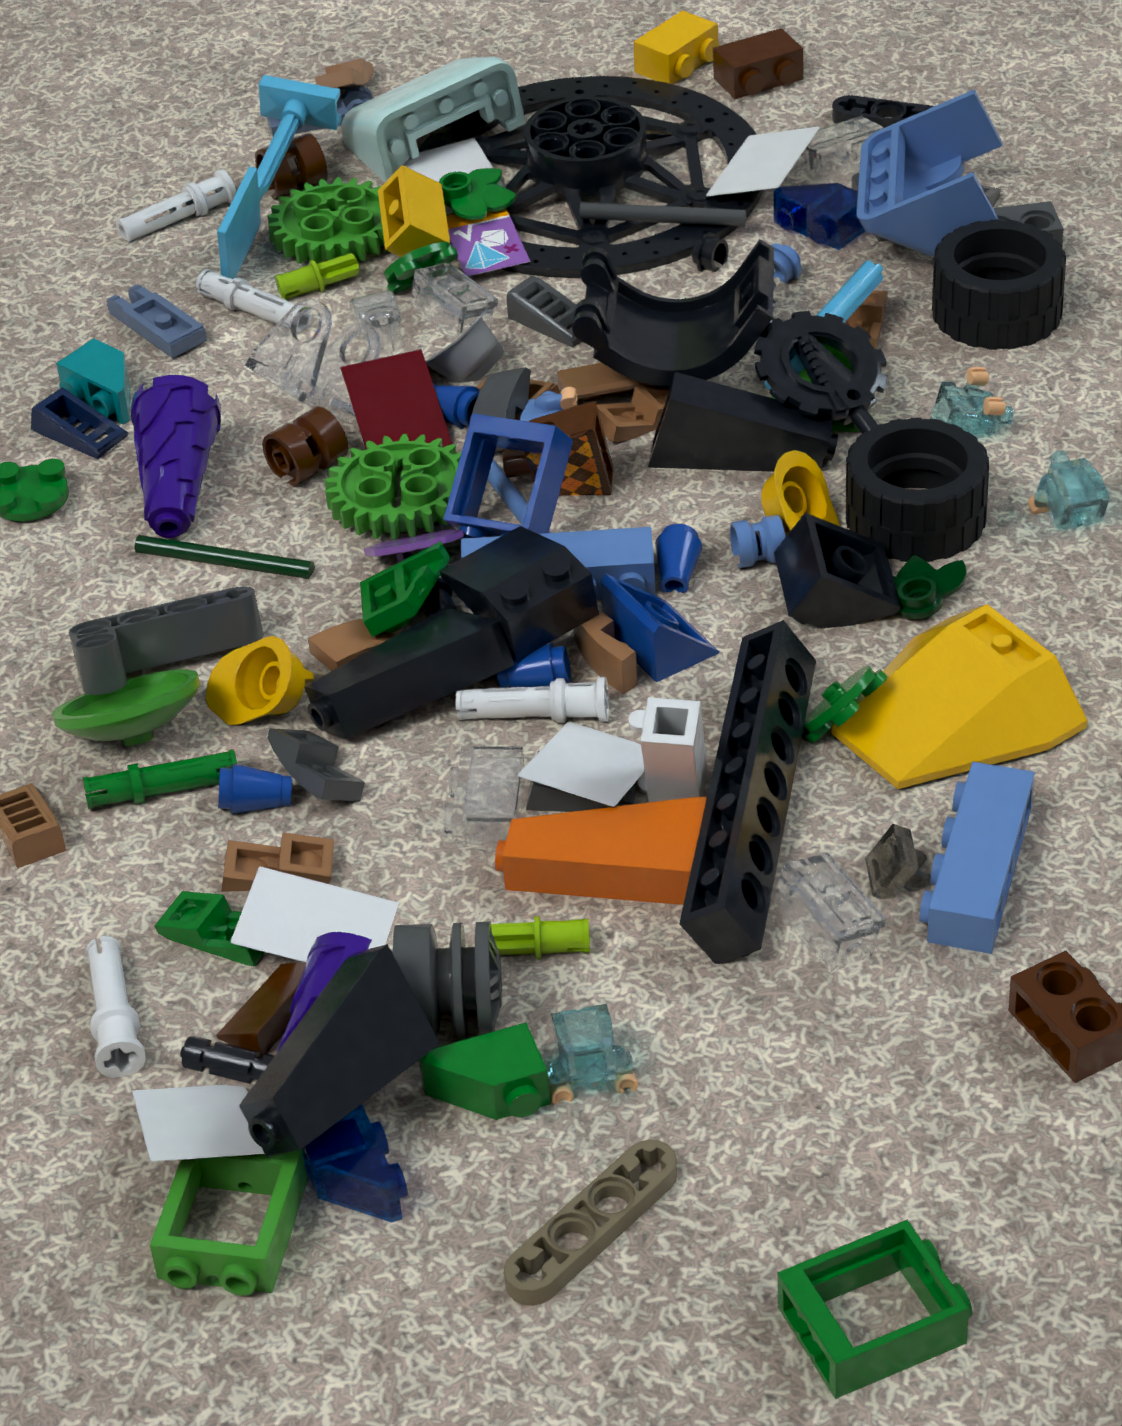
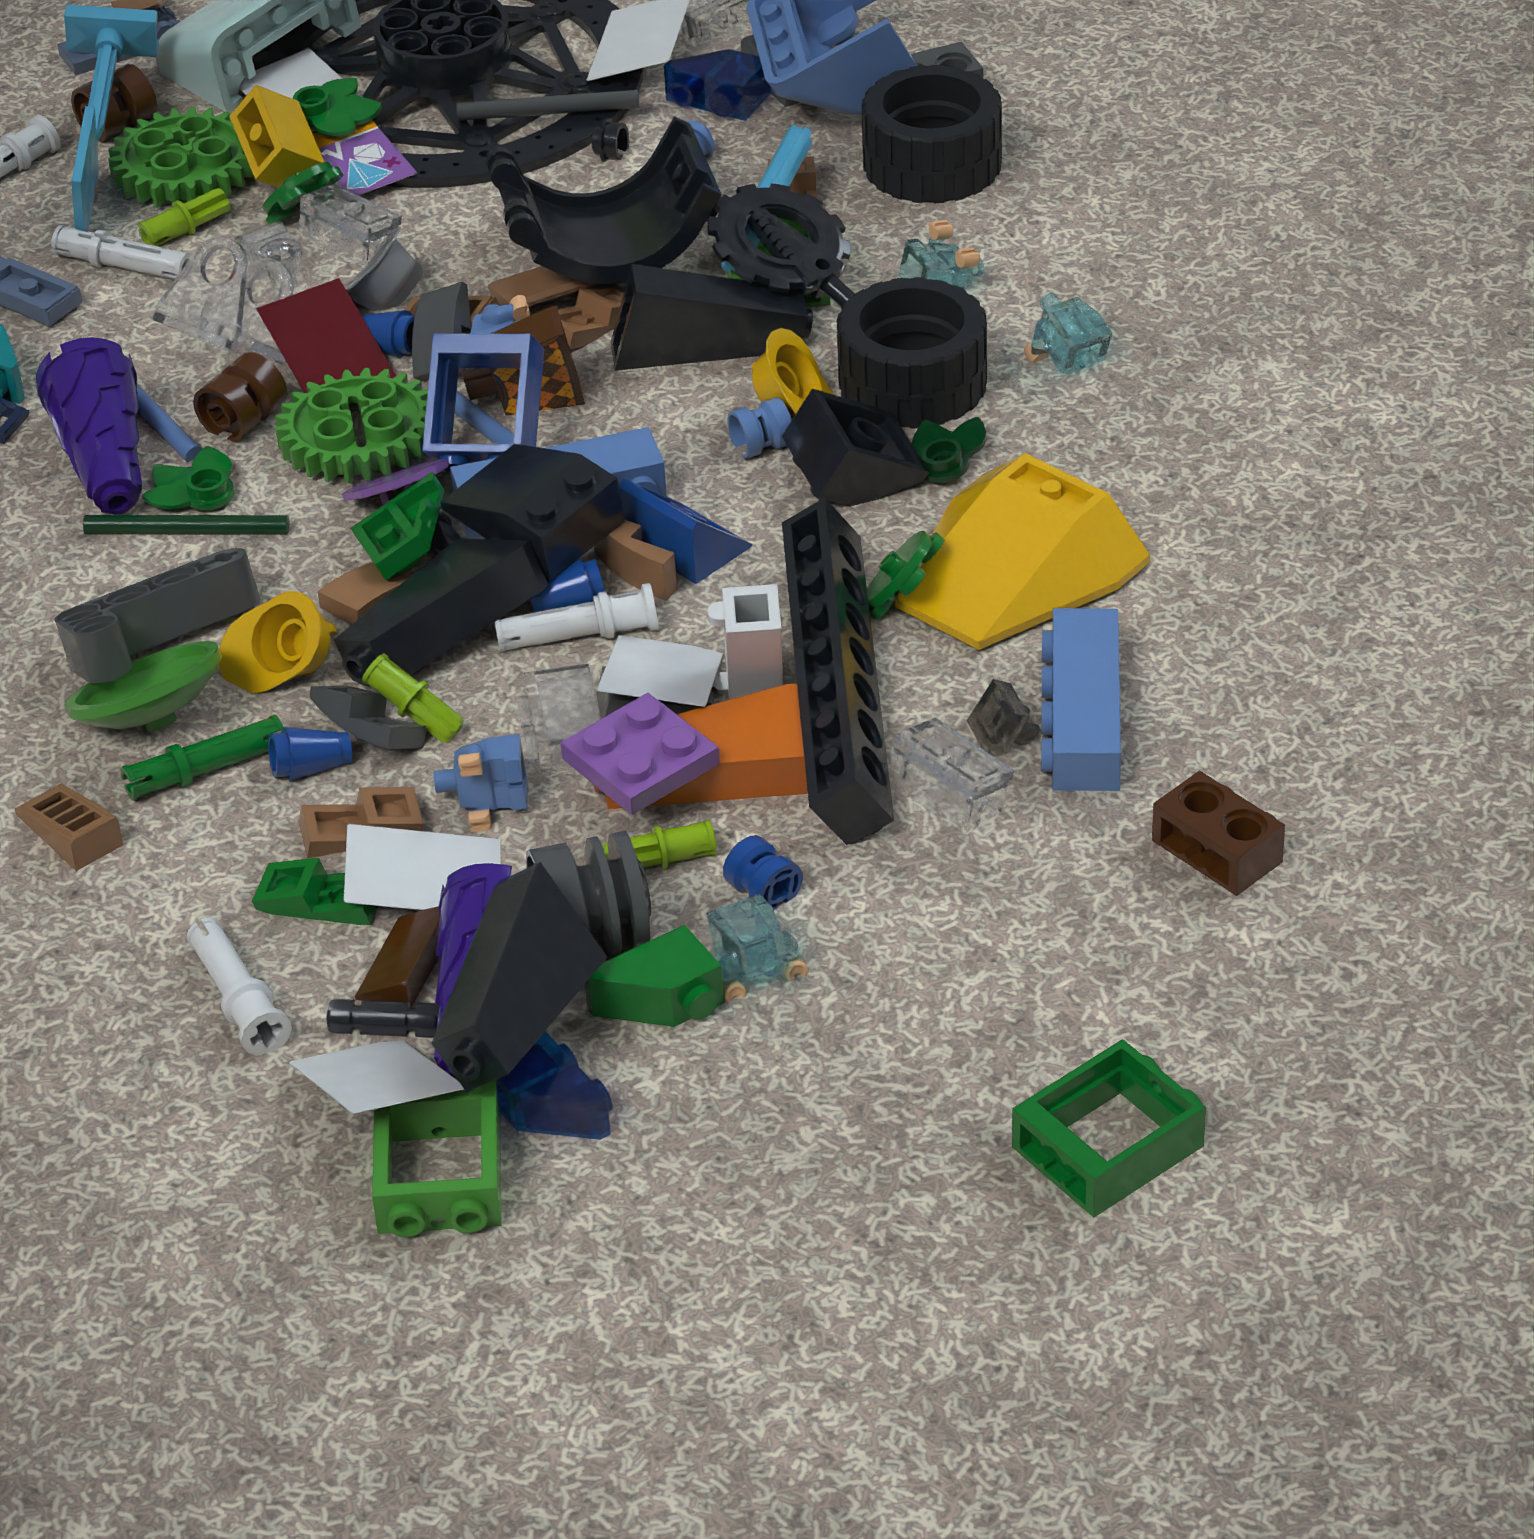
camera: 15 degrees left, 0 degrees up
(237, 461) = (166, 427): none -> medium blue bar
(243, 523) = (199, 487): none -> green plate
(358, 754) = (413, 698): none -> lime axle
(401, 842) = (487, 778): none -> medium blue piece
(525, 307) = (443, 221): dark grey slope -> none
(538, 844) = (640, 753): none -> medium lavender plate
(585, 1218) = (798, 1100): dark tan beam -> none
(621, 980) = (757, 869): none -> blue wheel
(677, 556) = (682, 454): blue cone -> none

